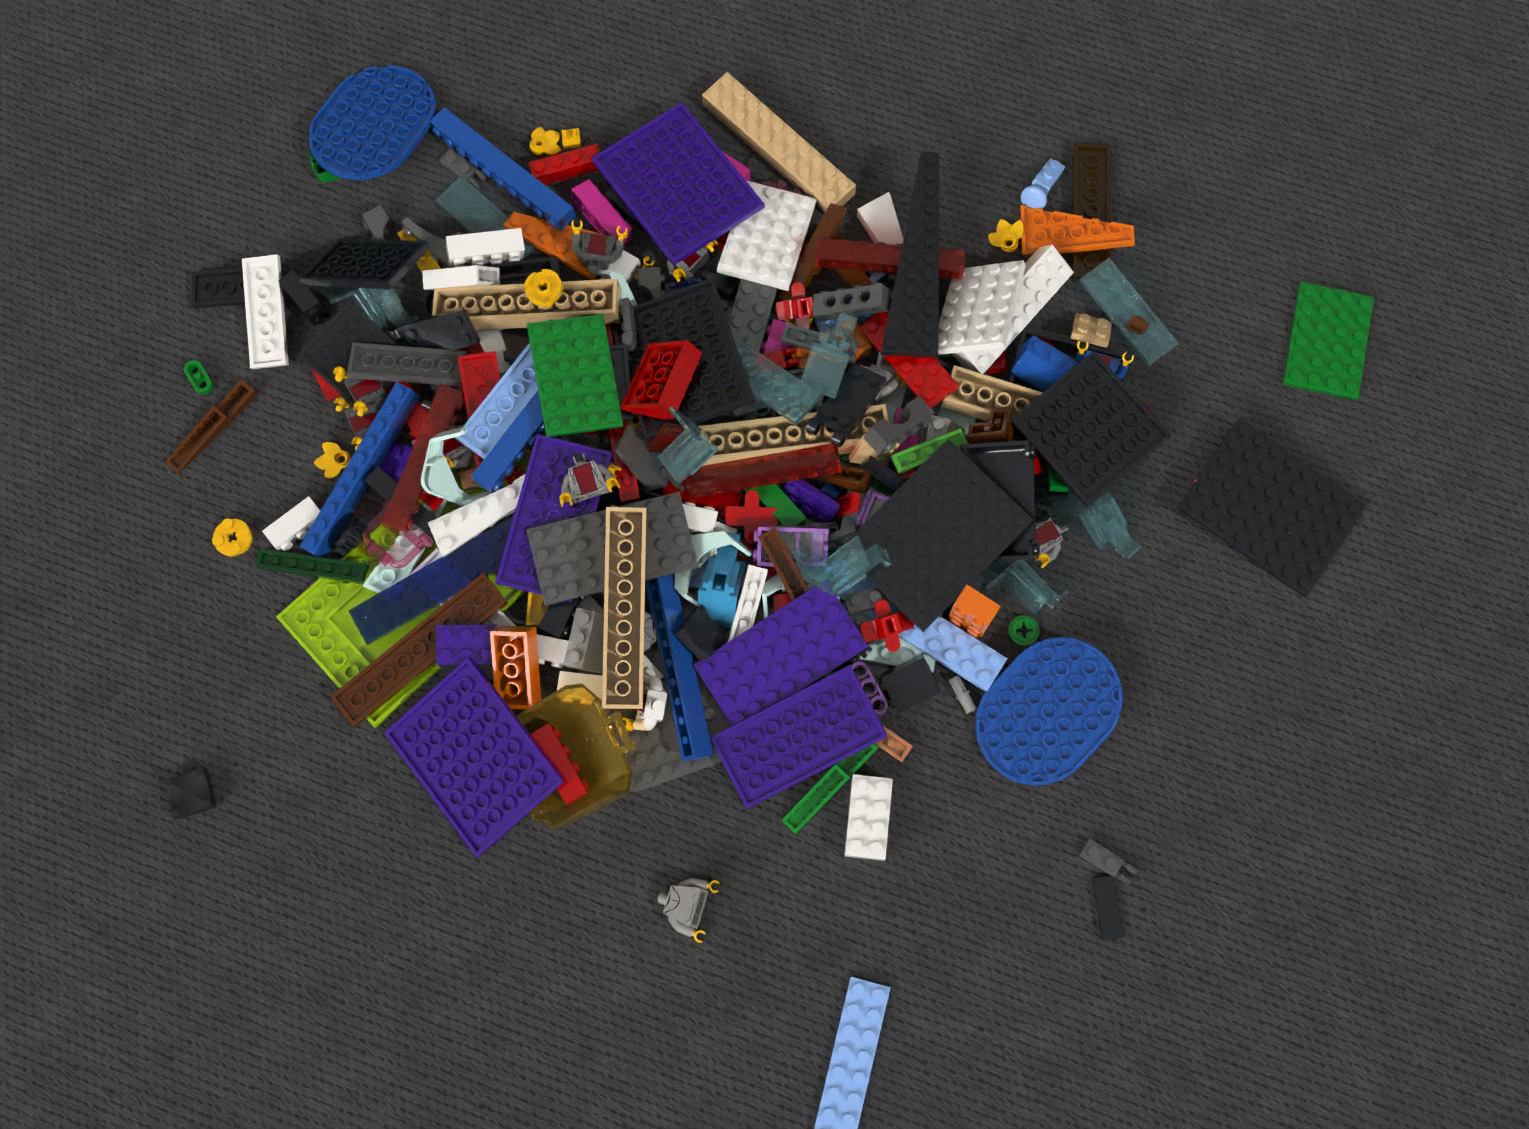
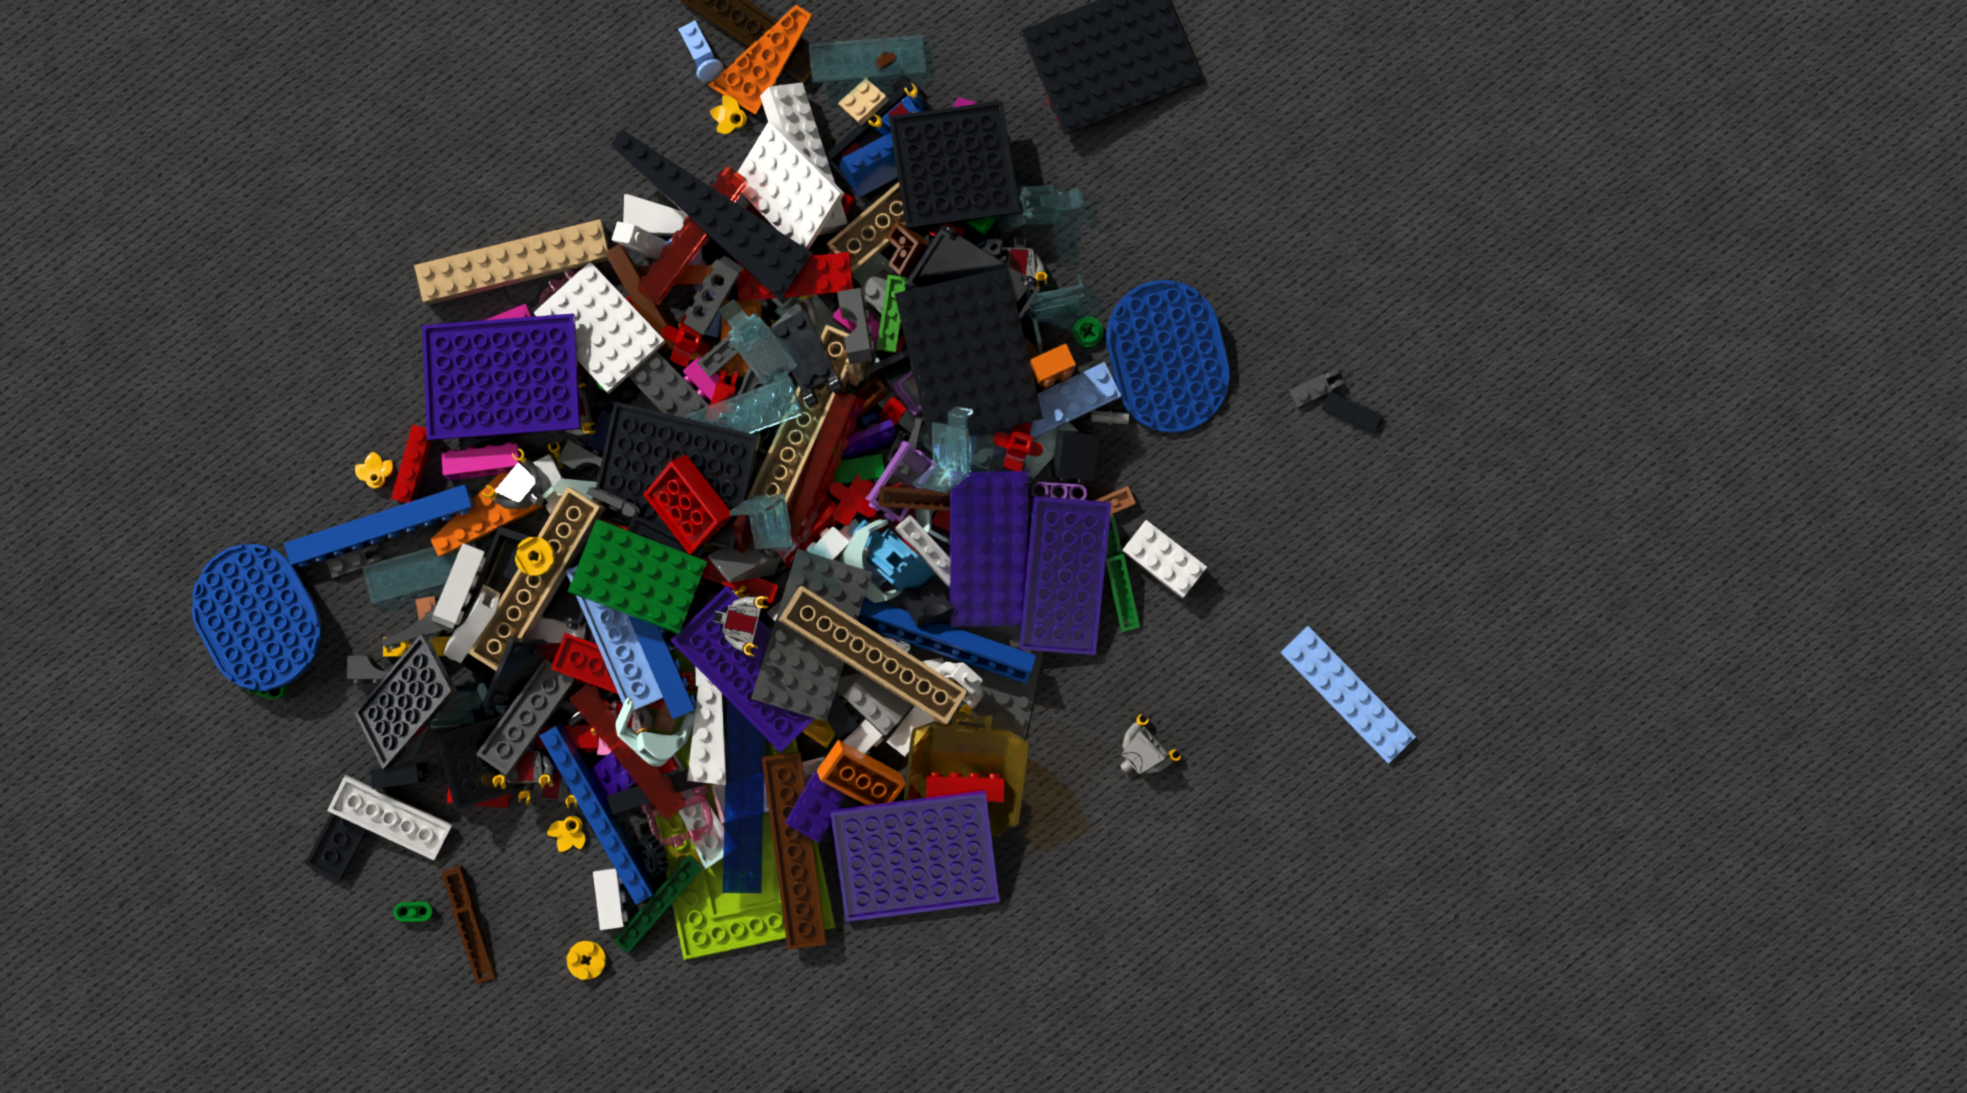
camera: 60 degrees left, 10 degrees up
(571, 138) = (385, 444): yellow tile -> none
(857, 218) = (639, 240): none -> white brick

